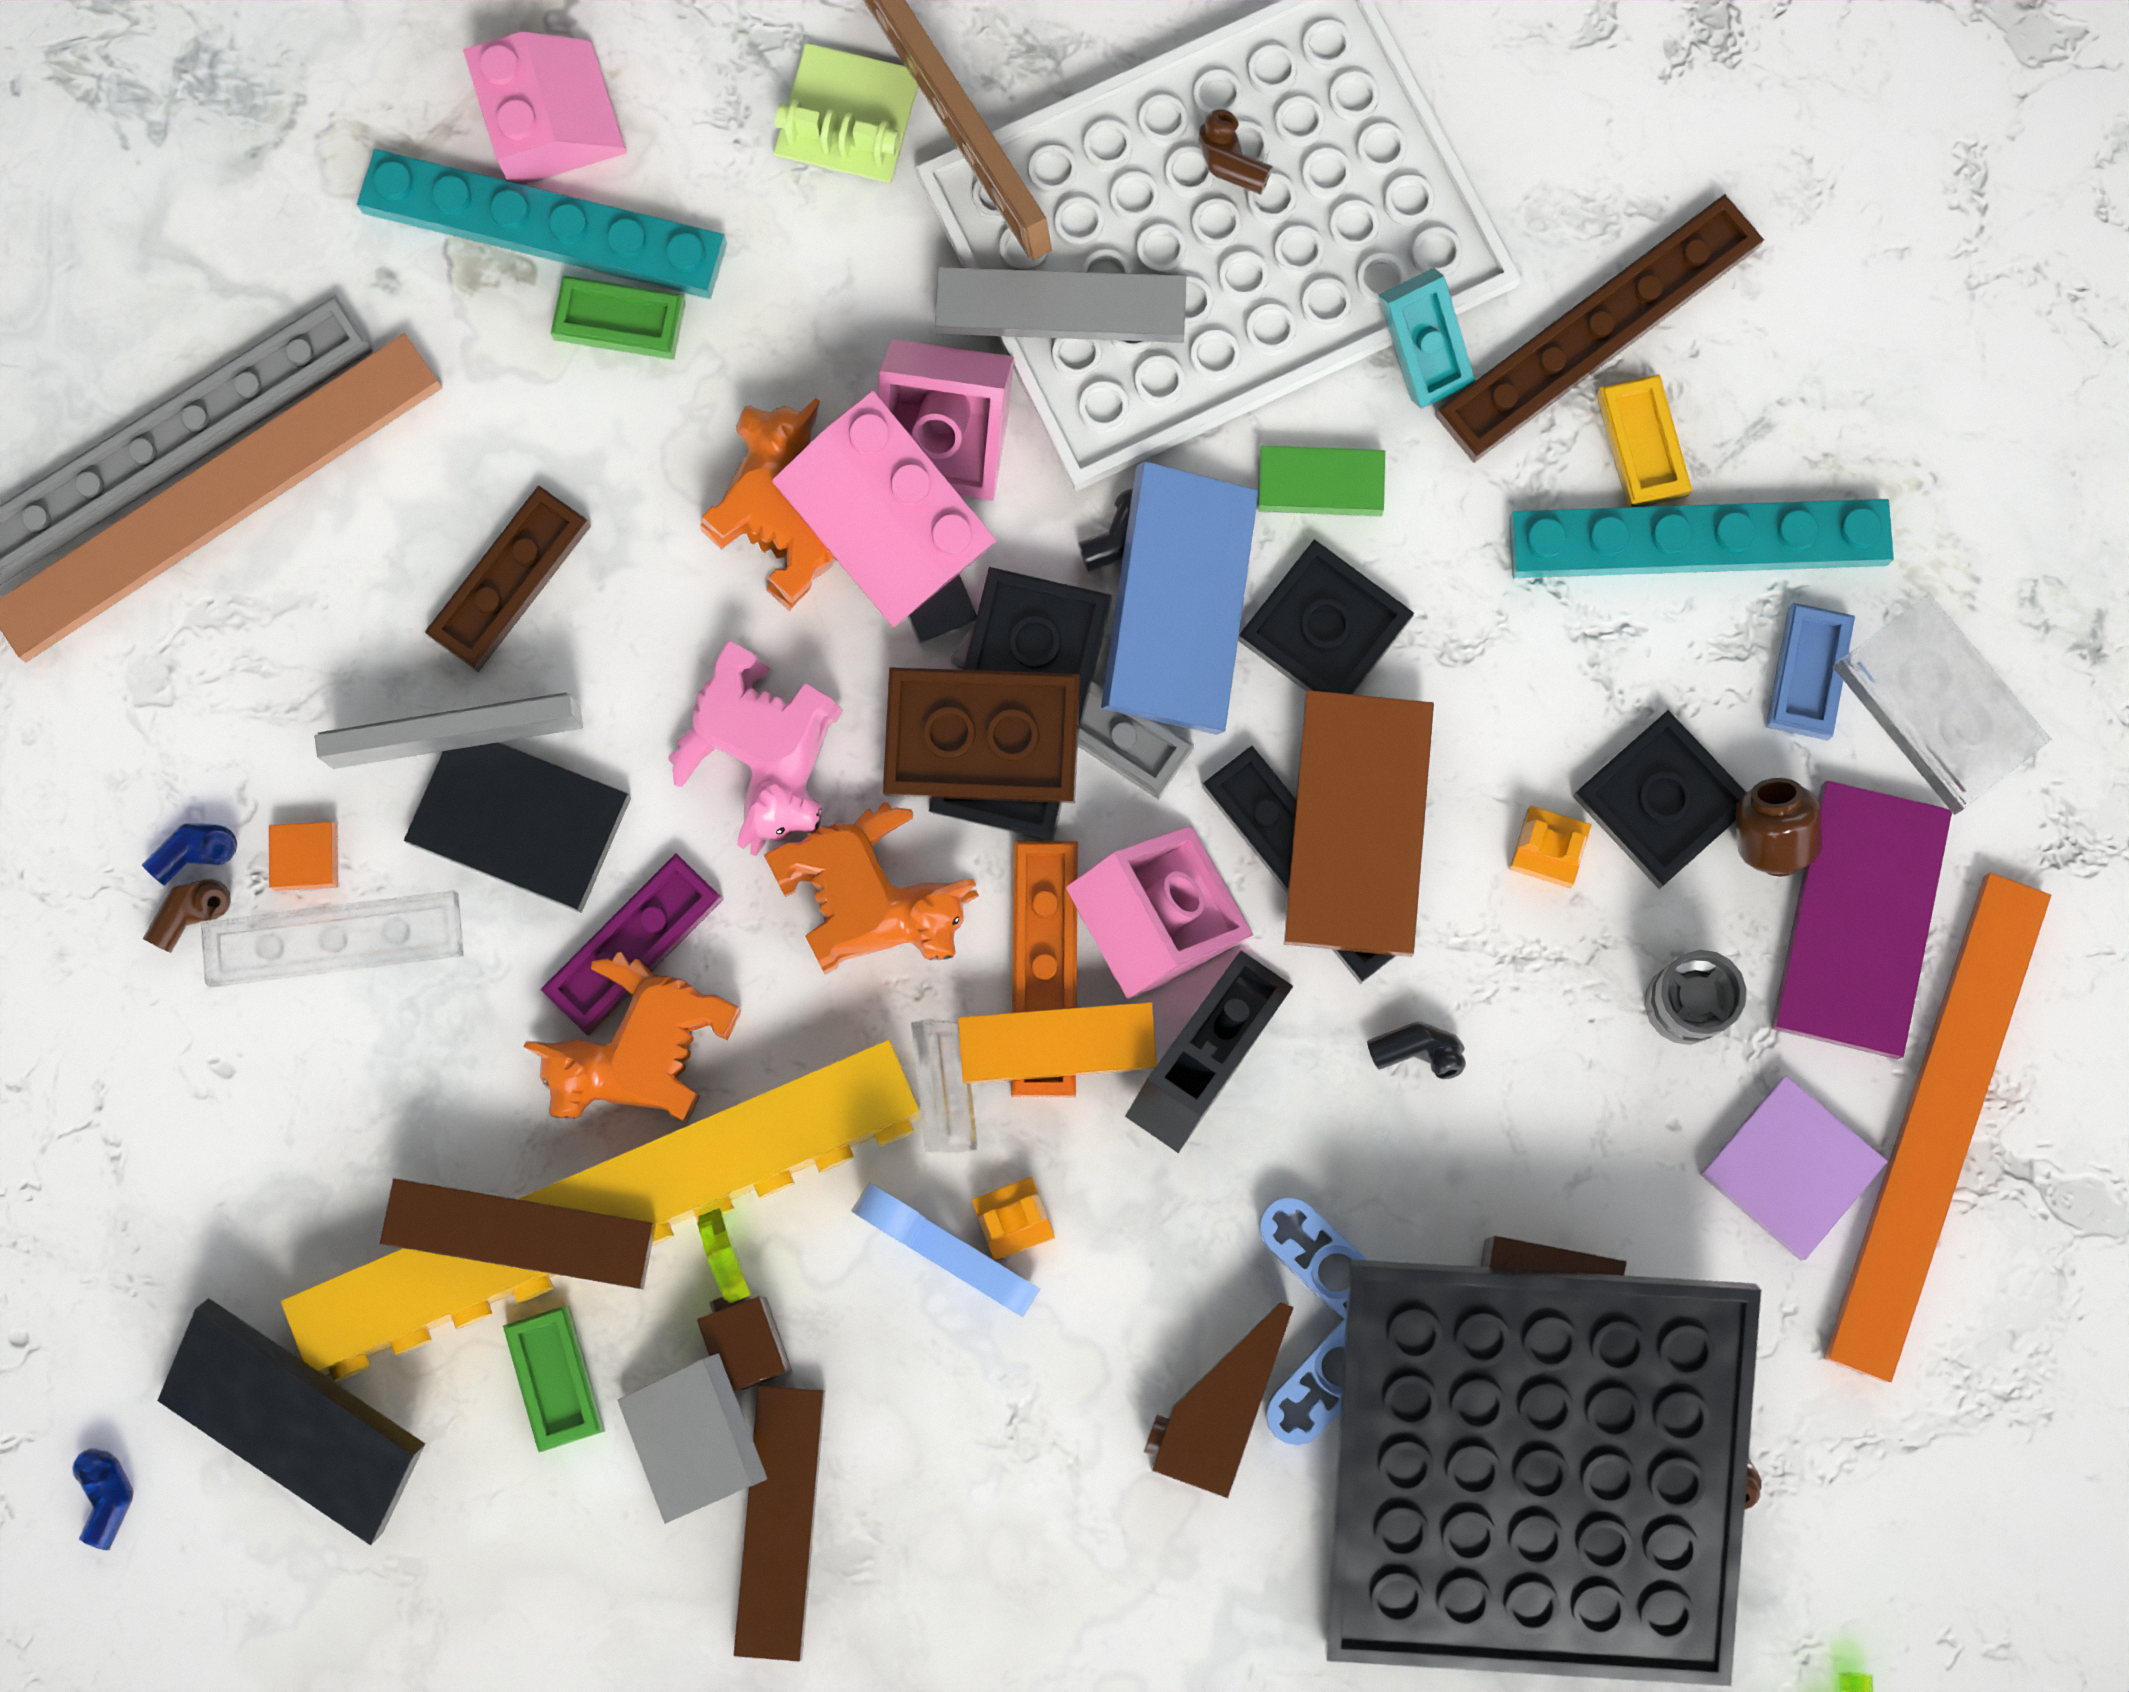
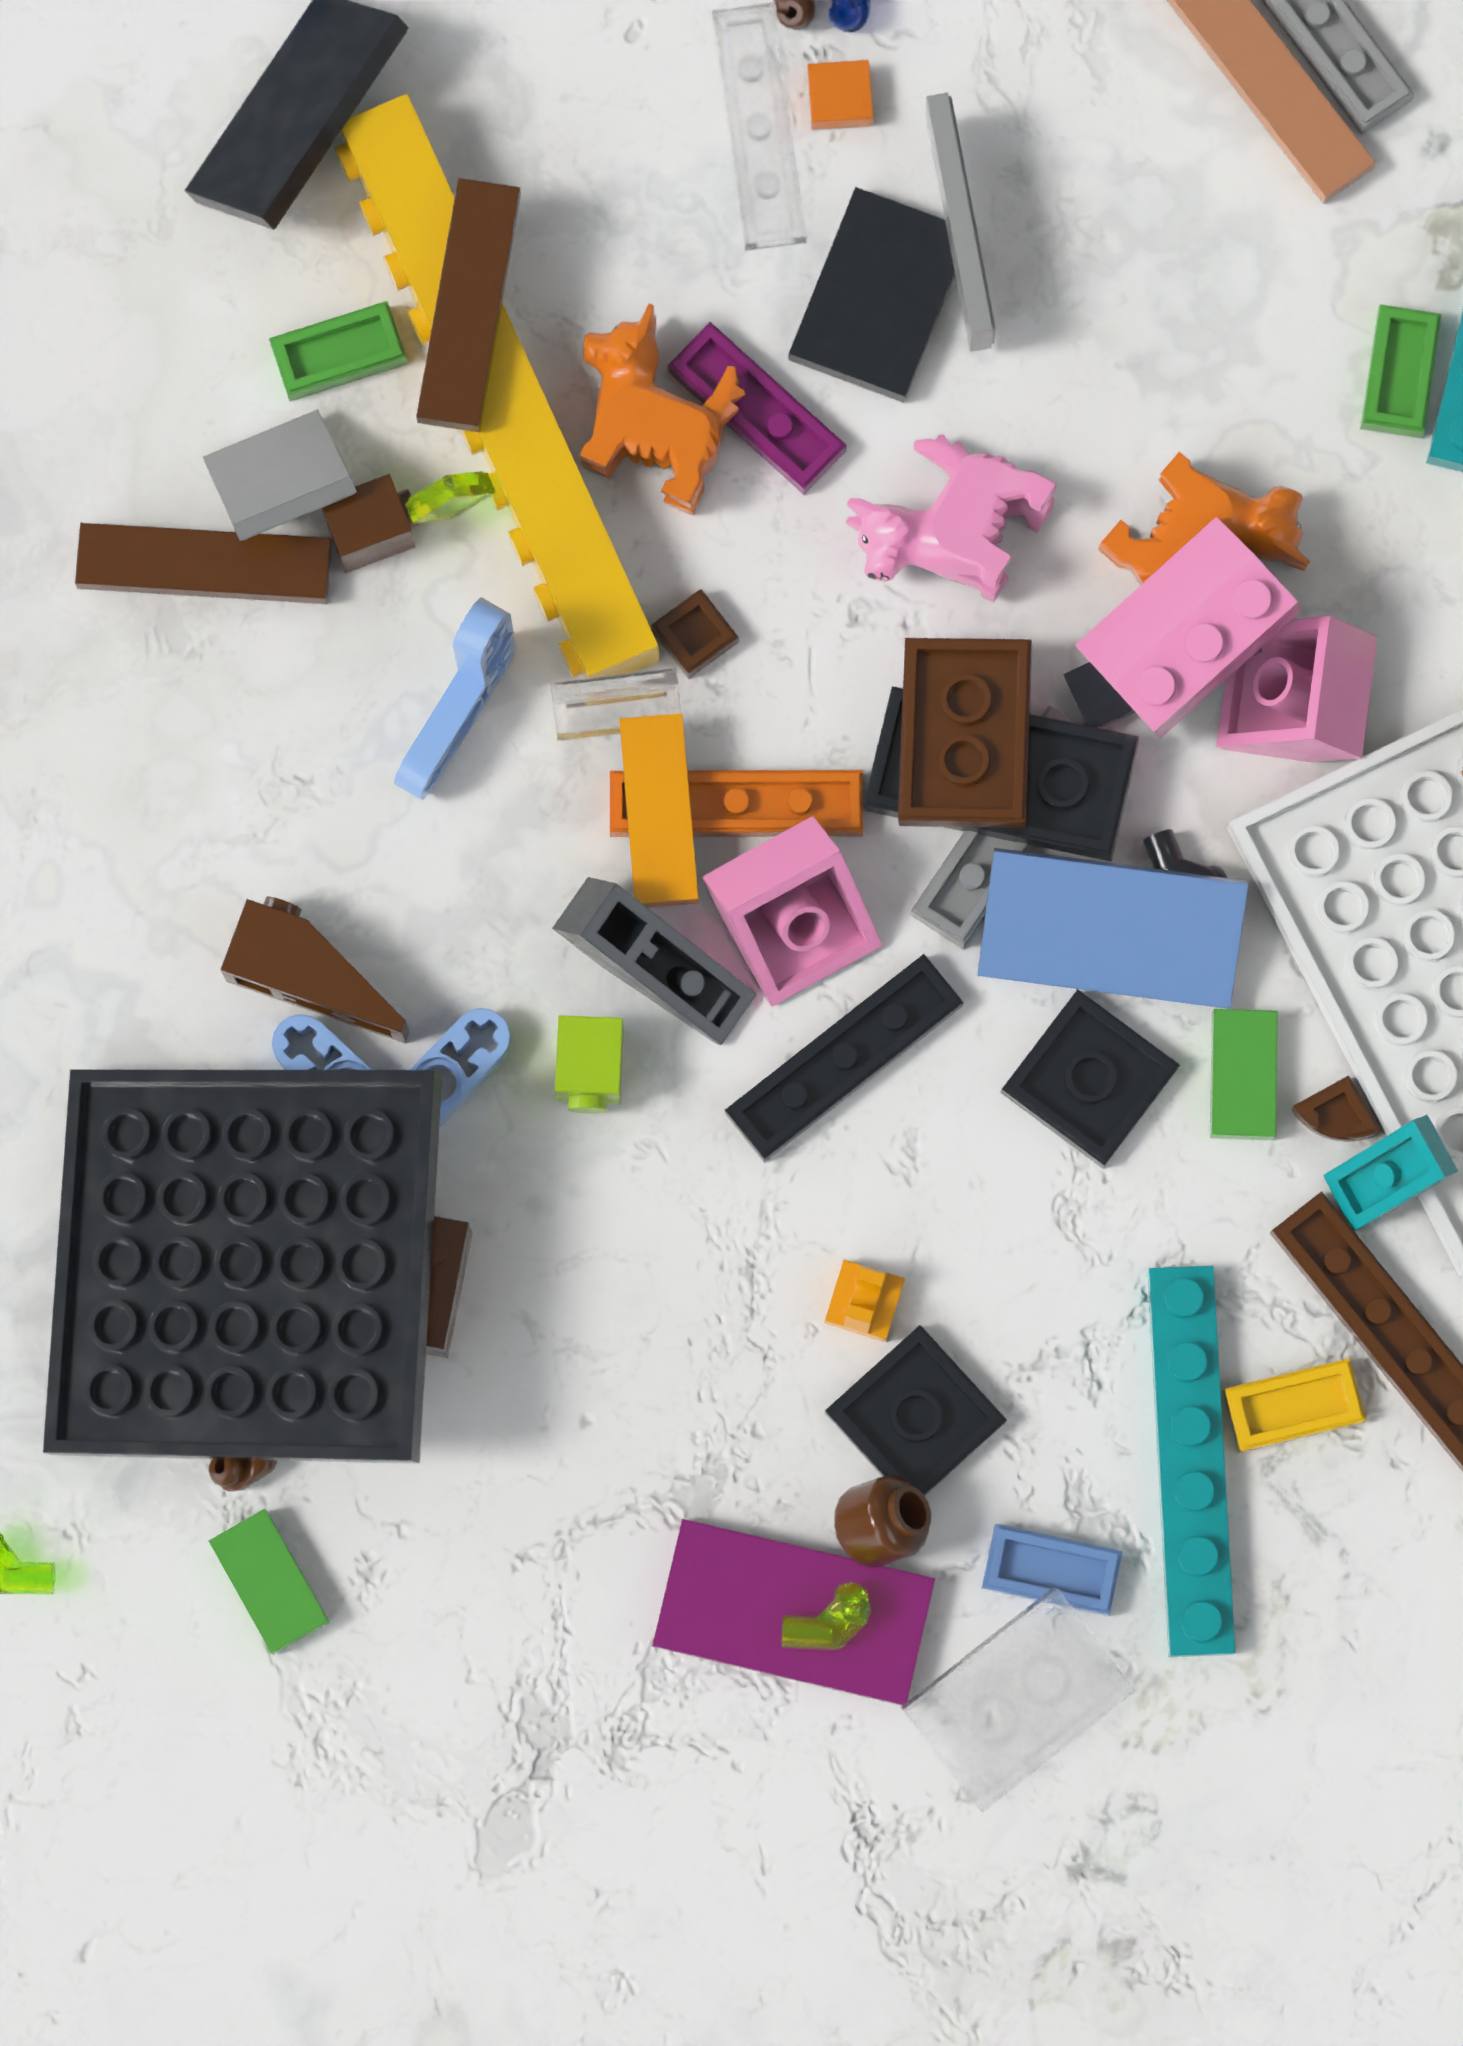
camera: 85 degrees right, 0 degrees up
(508, 578) = (1124, 275): reddish brown tile -> none
(857, 899) = (802, 617): orange animal -> none
(867, 1008) = (694, 633): none -> reddish brown tile
(1013, 1219) = (490, 775): light orange tile -> none
(1060, 304) = (1416, 803): light grey tile -> none
(1317, 1115) = (589, 1062): none -> lime brick
(1357, 395) = (1337, 1113): none -> reddish brown tile
(1359, 823) = (882, 1103): dark orange tile -> none
(1422, 1042) = (665, 1165): black arm -> none
(1695, 997) = (707, 1431): flat silver wheel -> none
(1793, 1168) = (542, 1534): lavender tile -> none
(1850, 1446) = (269, 1581): none -> bright green tile
(1884, 875) = (834, 1626): none -> clear neon green arm
(1937, 1128) = (586, 1681): orange tile -> none

